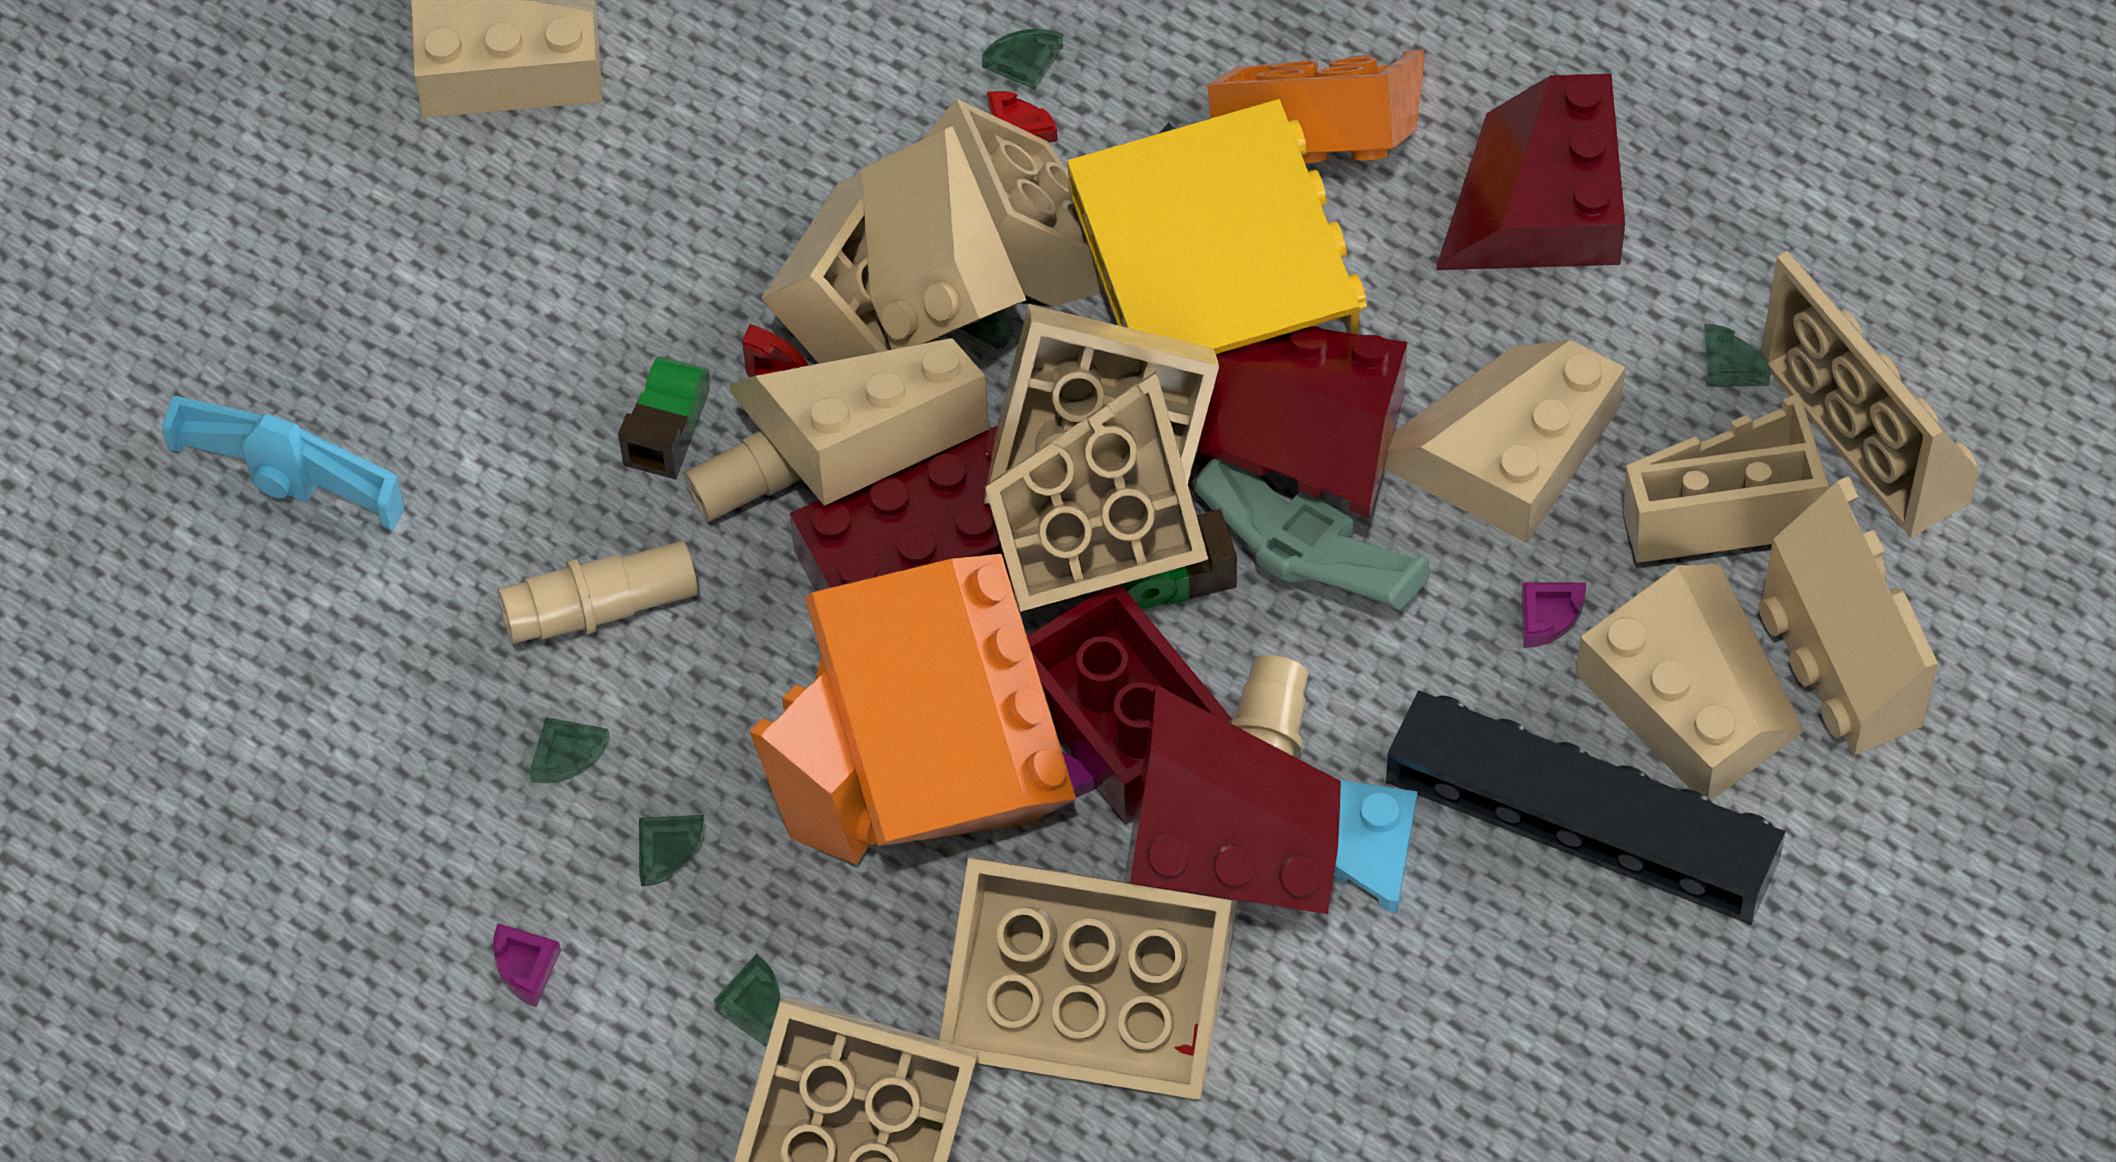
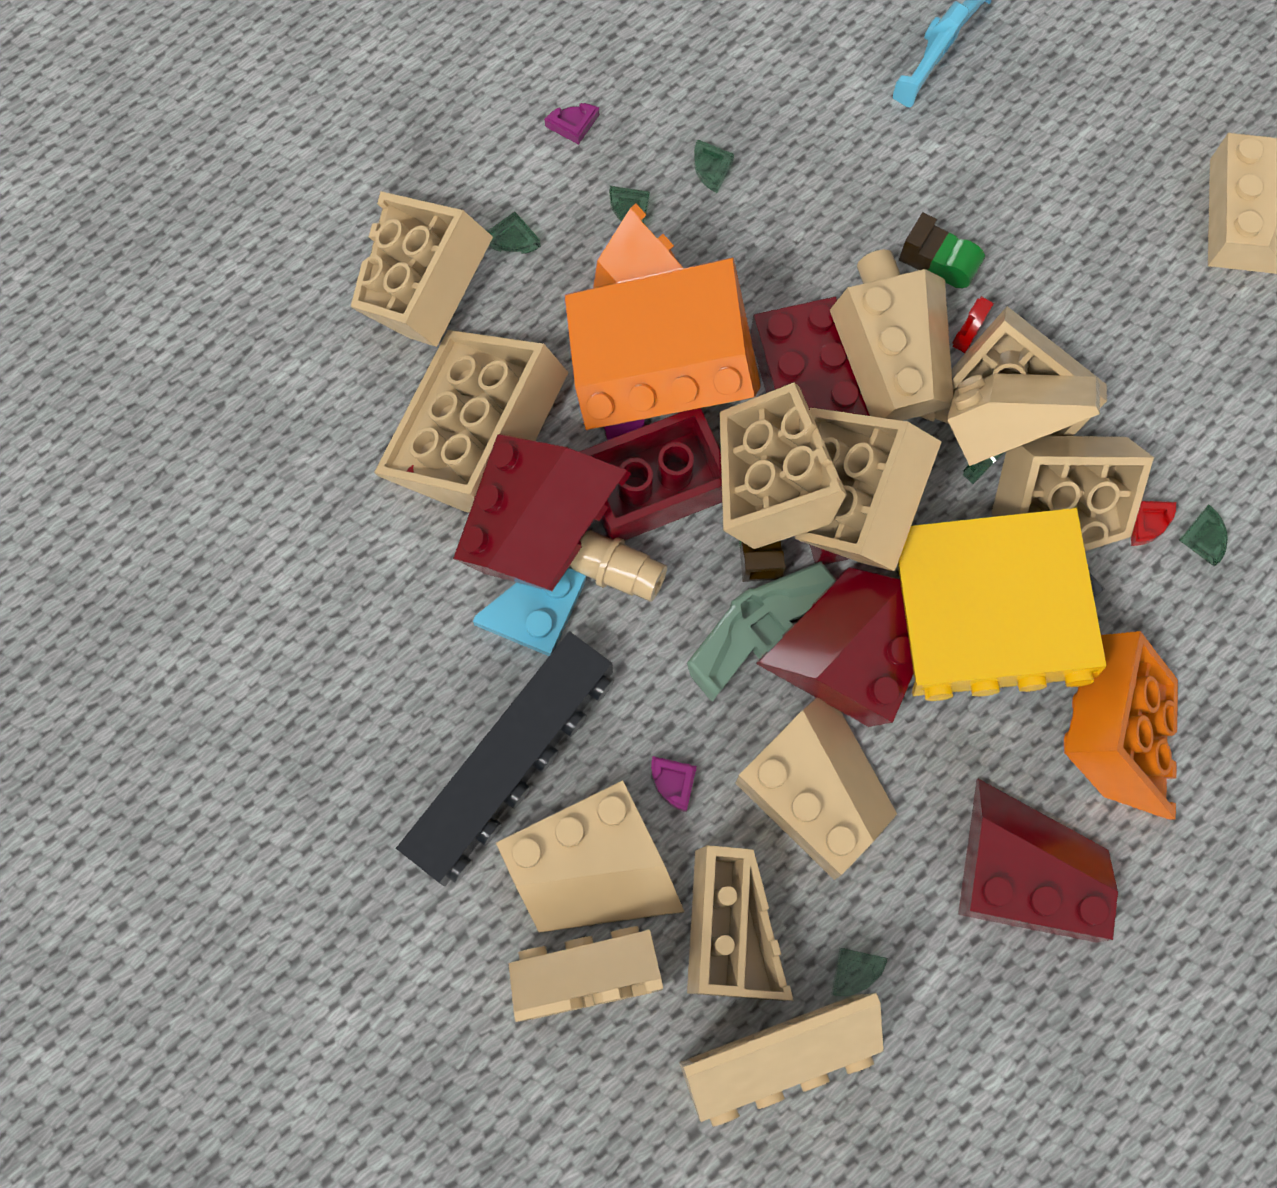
camera: 100 degrees right, 15 degrees up
(596, 592) = (813, 190): tan piece -> none

